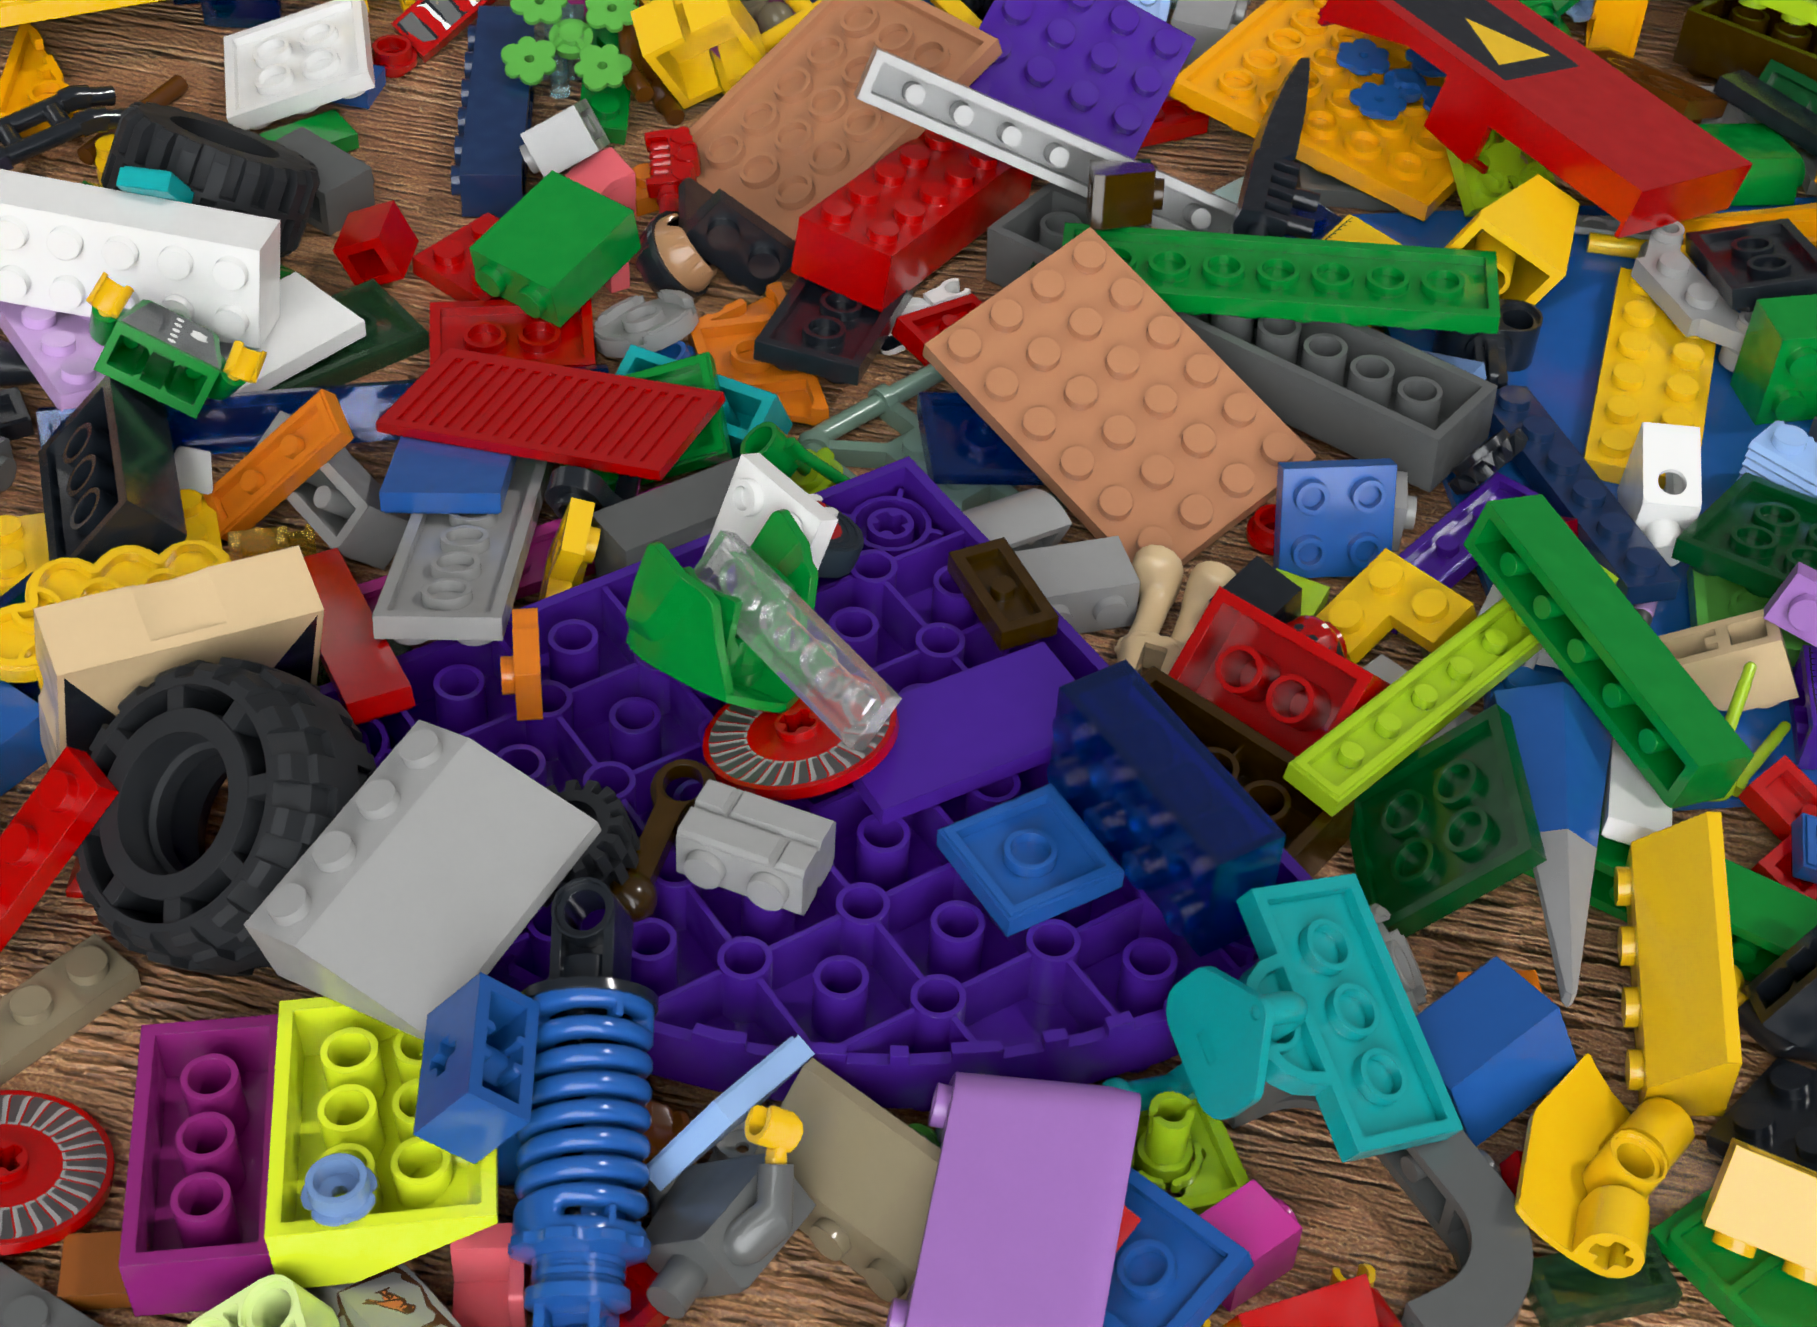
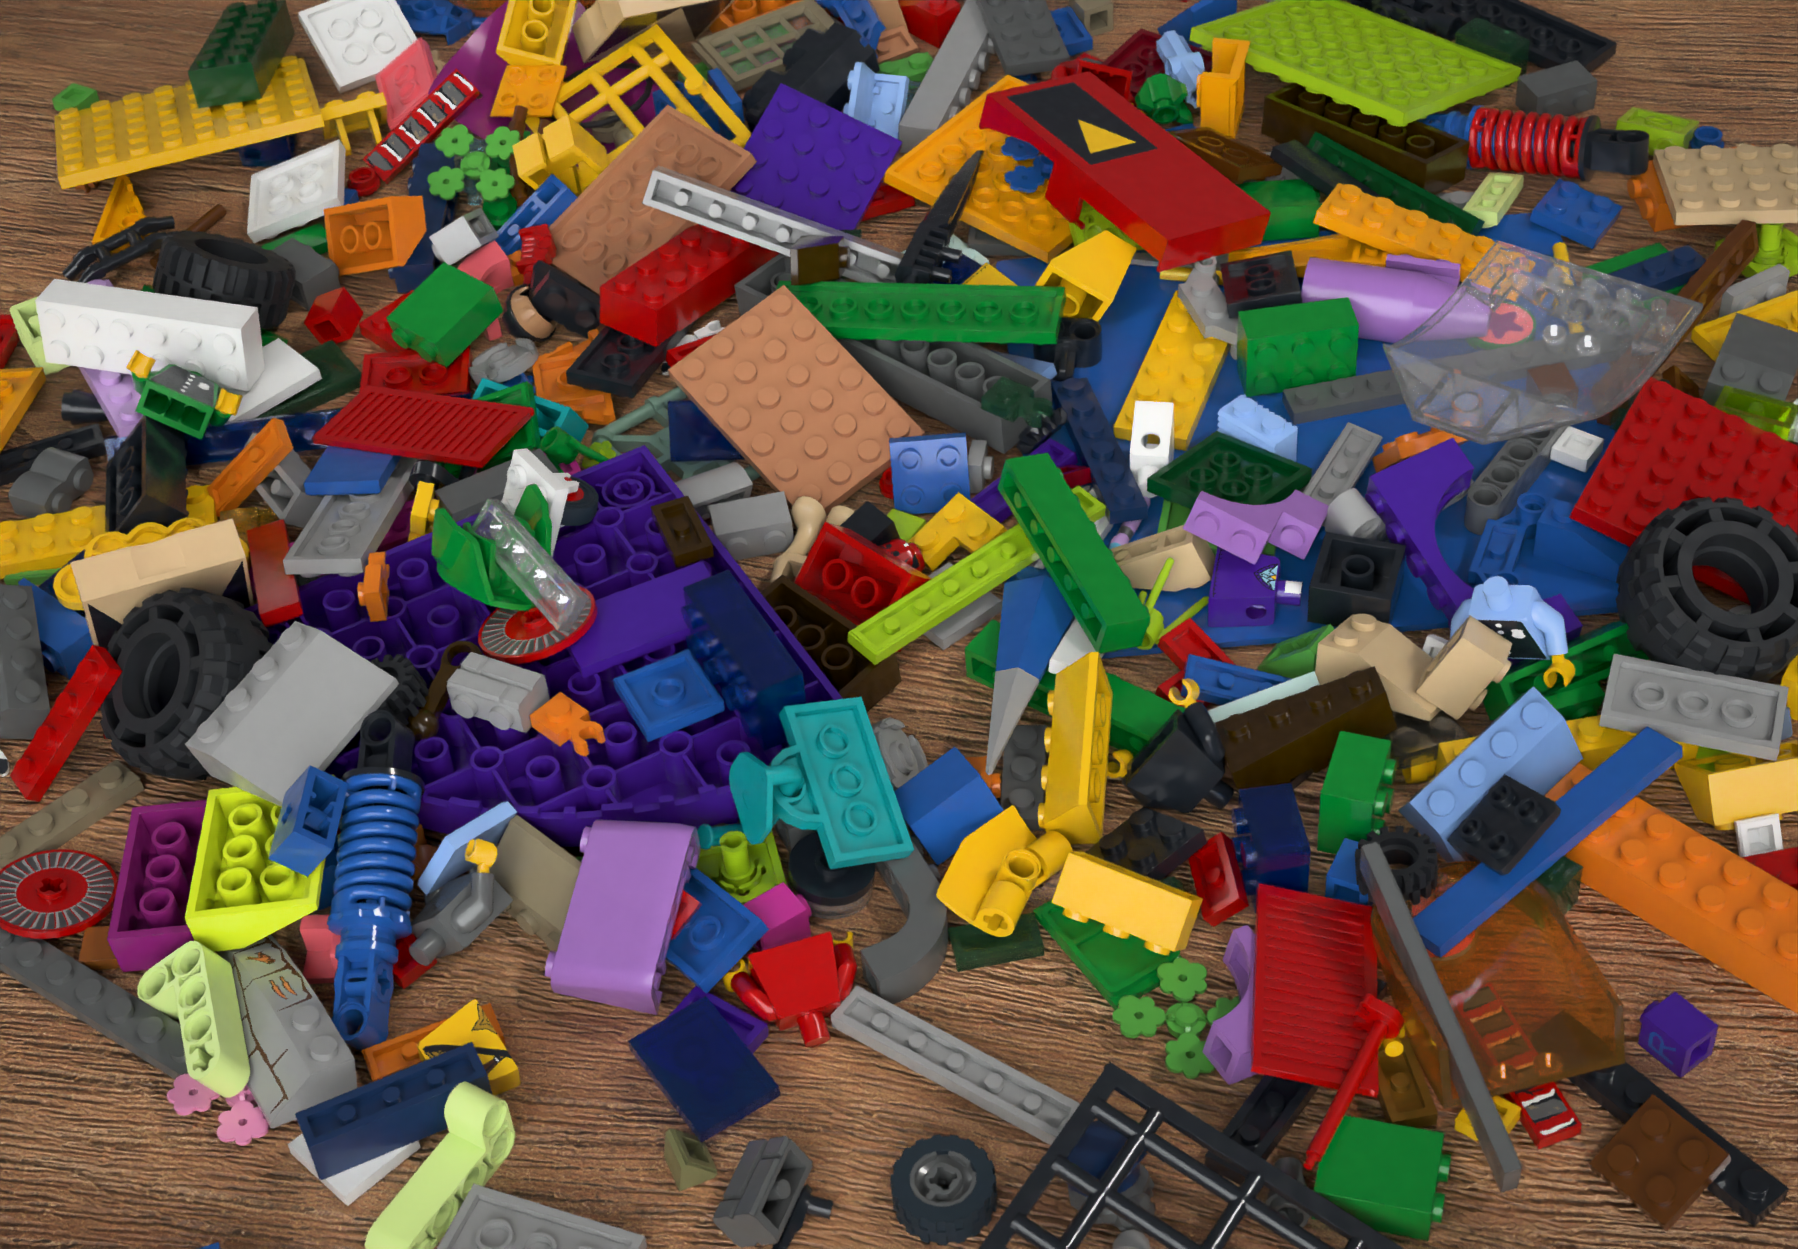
camera: 10 degrees right, 0 degrees up
(153, 183) = (178, 287): teal tile -> none
(194, 469) = (200, 473): white sticker -> none
(338, 1175) = (226, 890): medium blue plate -> none
(431, 125) = (374, 233): none -> orange slope
(672, 104) = (540, 208): none -> blue slope
(870, 897) = (566, 720): none -> orange plate
(1299, 1164) = (828, 891): none -> black piece
(1446, 824) = (949, 668): dark green plate -> none
(1457, 414) = (1015, 400): none -> clear green plate
(1591, 1016) = (1022, 772): none -> dark grey plate

